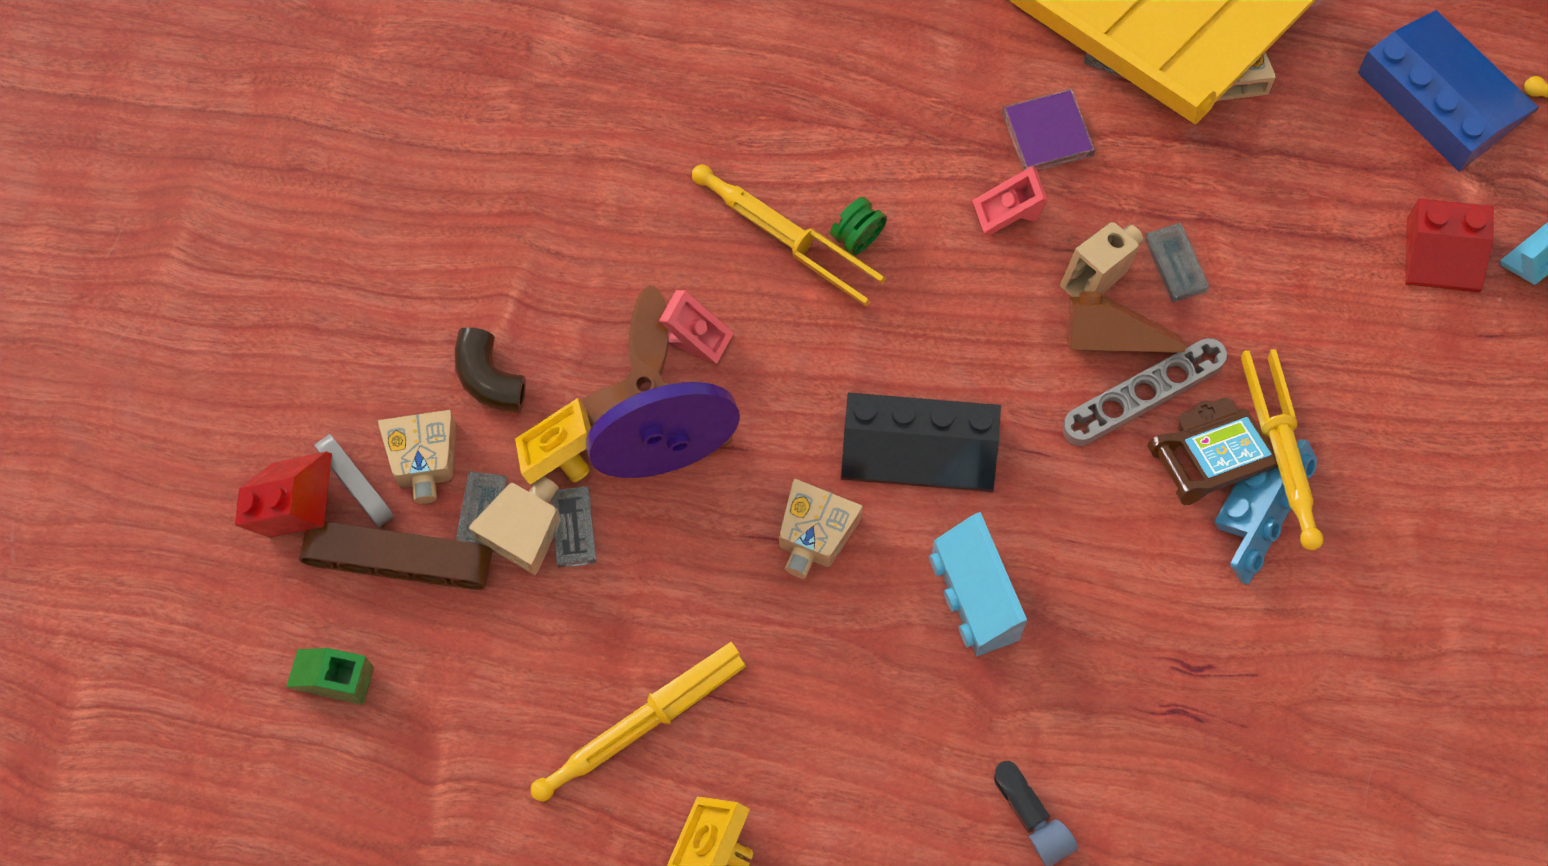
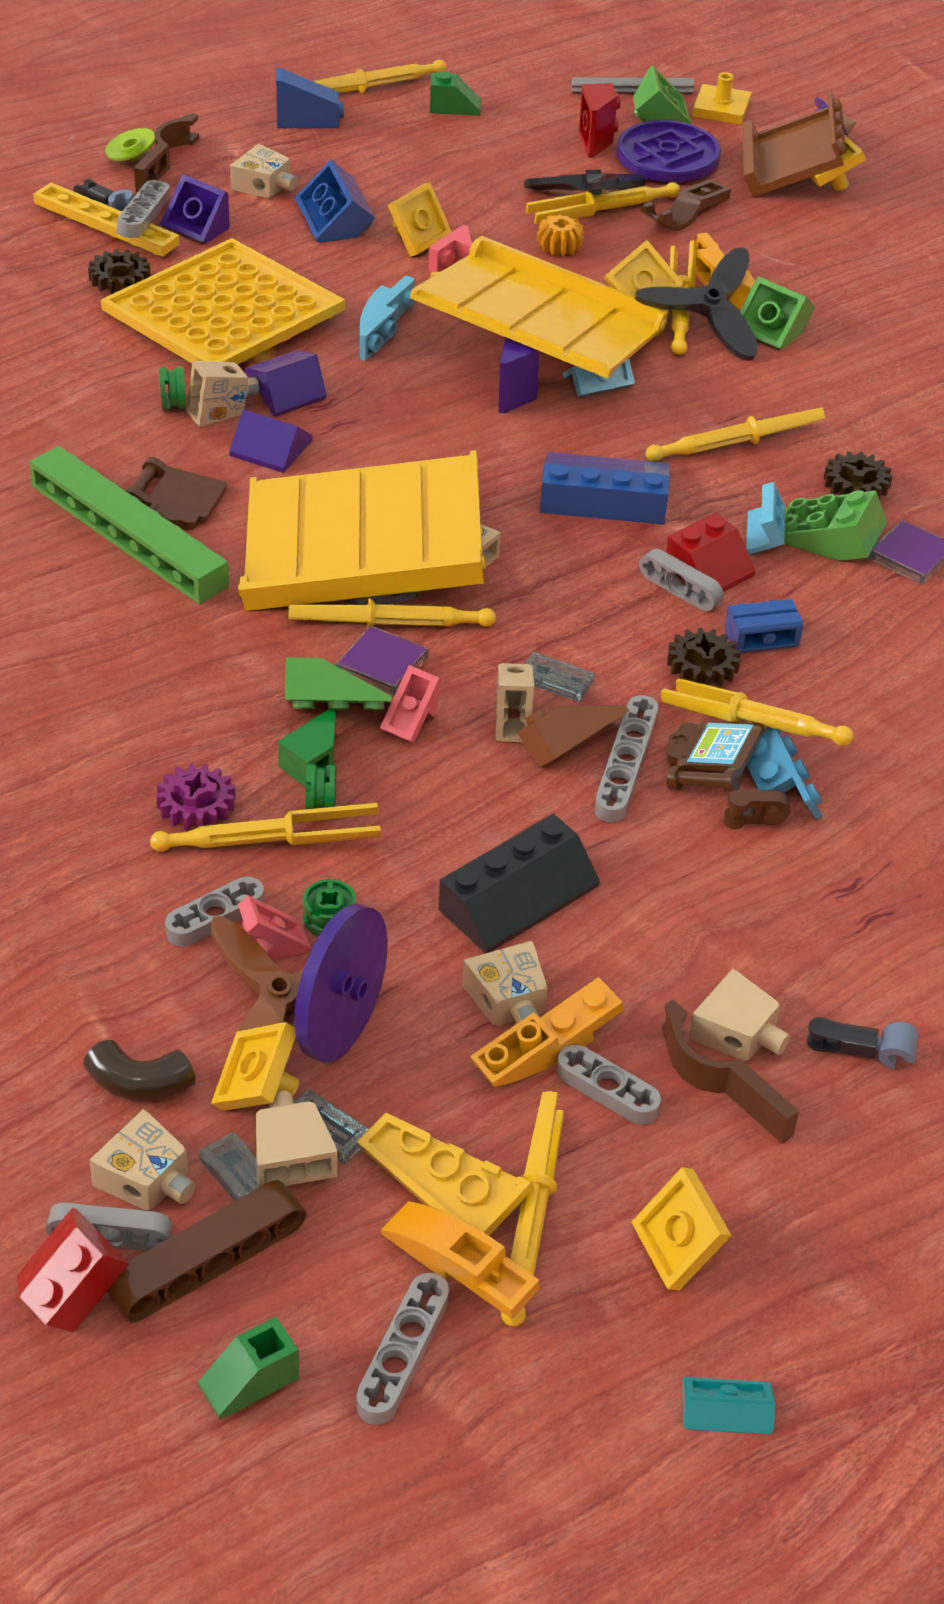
camera: 50 degrees left, 25 degrees down
(450, 751) = (399, 1345): none -> light grey beam
(540, 718) = (463, 1252): none -> light orange slope
(601, 647) = (444, 1174): none -> yellow wing
(669, 260) = (223, 897): none -> light grey beam
(759, 340) = (323, 901): none -> green wheel
(760, 161) = (195, 796): none -> magenta gear
(788, 646) = (617, 1099): none -> light grey beam
(794, 595) = (537, 1041): none -> light orange slope
(895, 675) = (730, 1077): none -> reddish brown piece
(897, 179) = (308, 744): none -> green slope
(954, 709) = (738, 1019): none -> tan torso
(961, 132) = (320, 681): none -> bright green slope
(978, 586) = (668, 927): medium azure slope -> none
(1081, 76) = (387, 614): none -> yellow piece
(1200, 540) = (756, 807): none -> reddish brown plate
(1328, 362) = (704, 657): none -> dark brown gear
(1394, 249) = (699, 589): none -> light grey beam
(1413, 356) = (764, 625): none -> blue brick

